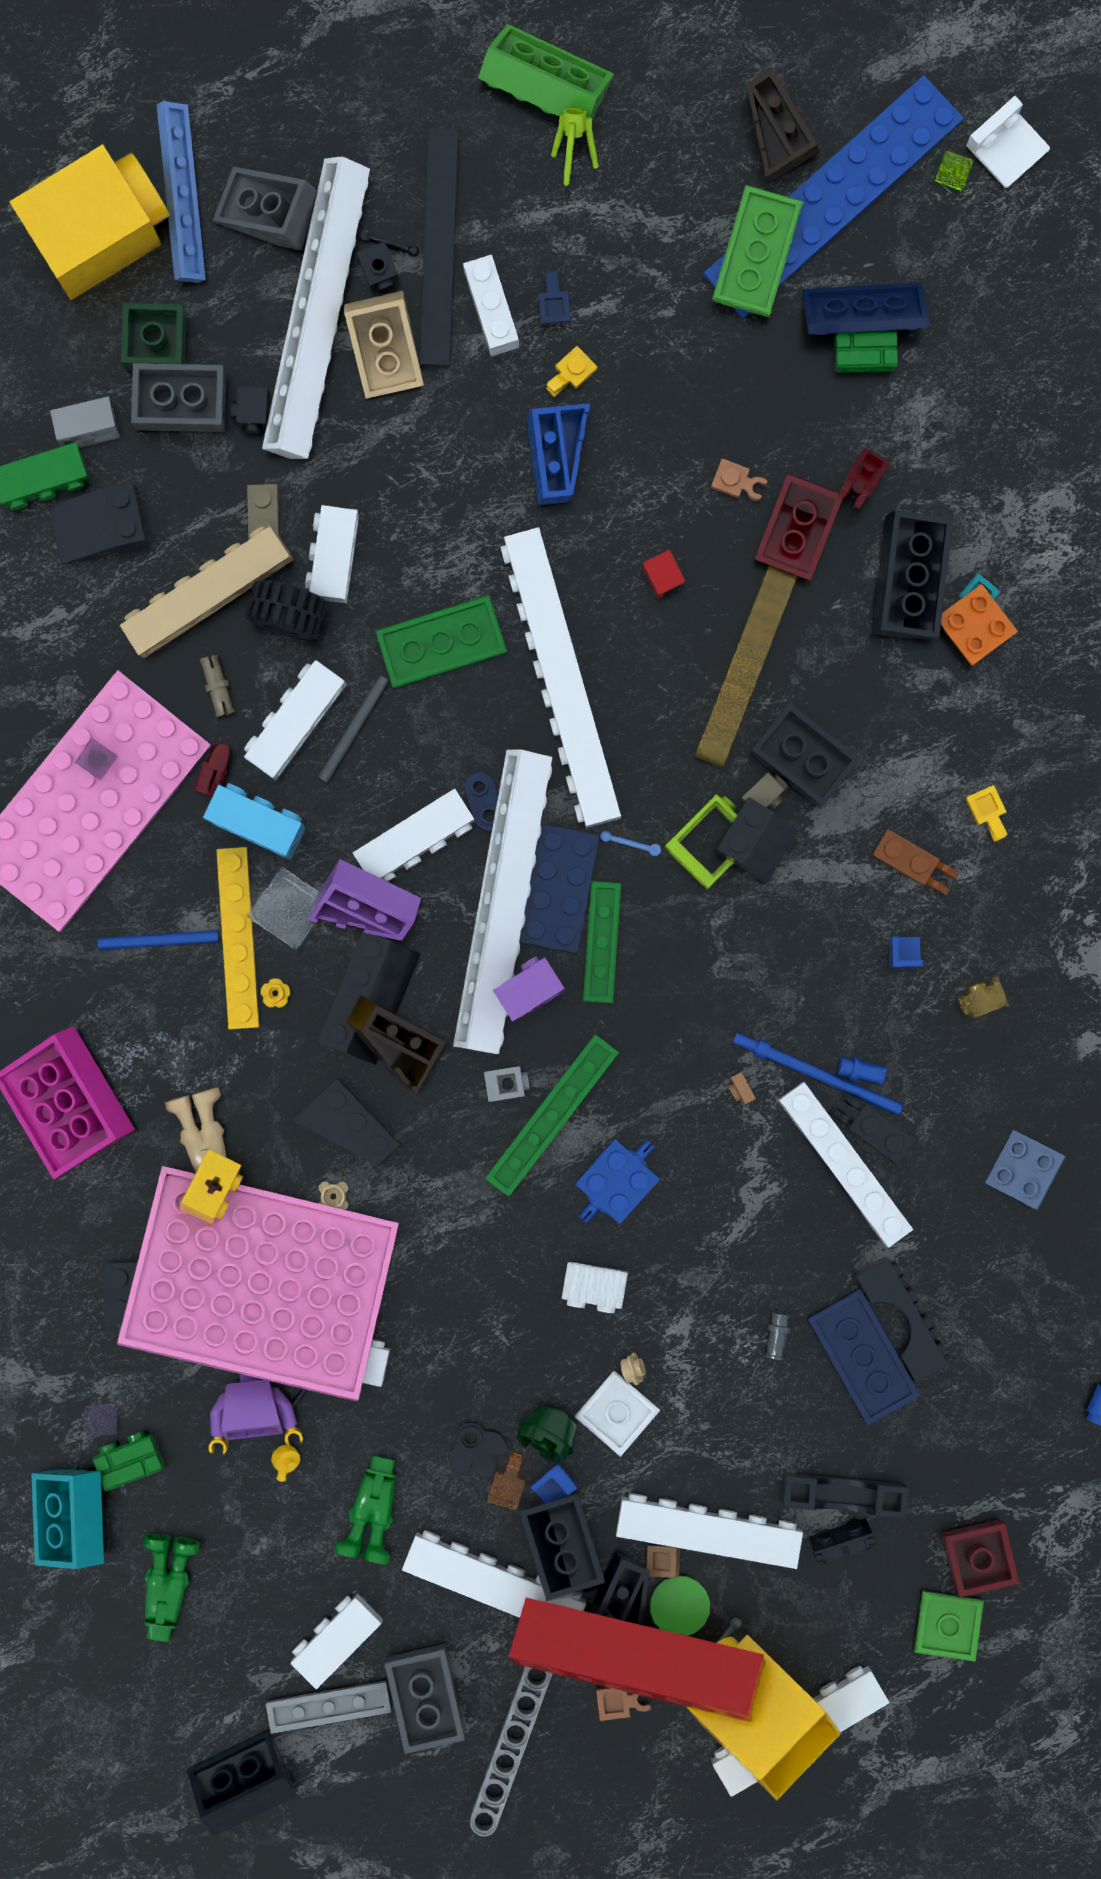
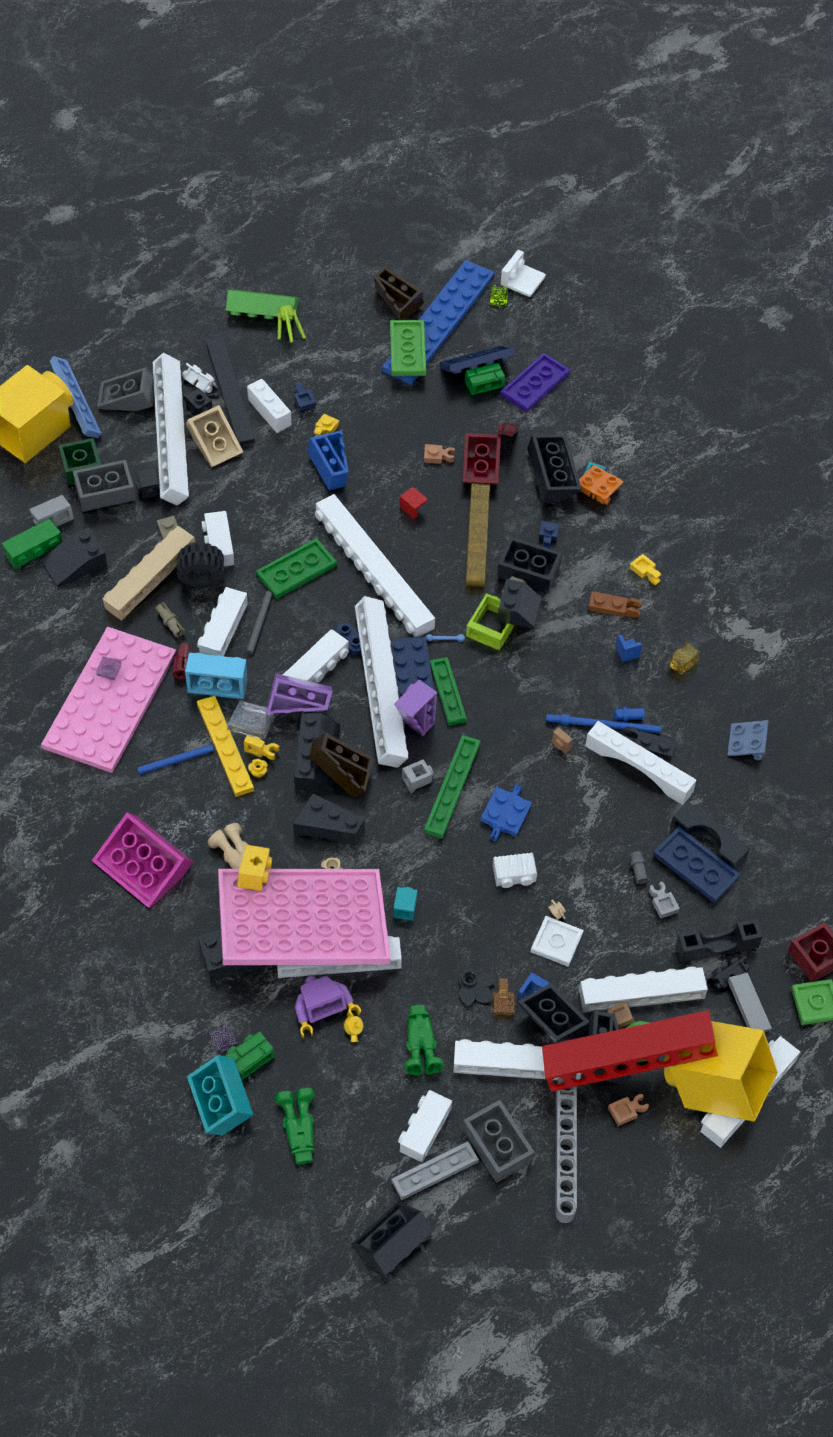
camera: 25 degrees left, 30 degrees down
(282, 957) = (258, 748): none -> yellow plate
(389, 199) = (194, 373): none -> white hinge
(419, 1290) = (405, 903): none -> teal brick
(548, 1433) = (518, 958): dark green cone -> none
(793, 1405) = (664, 903): none -> light grey plate
(851, 1599) = (749, 1002): none -> light grey tile
(861, 693) = (548, 533): none -> dark blue plate
(949, 377) = (535, 382): none -> dark purple tile

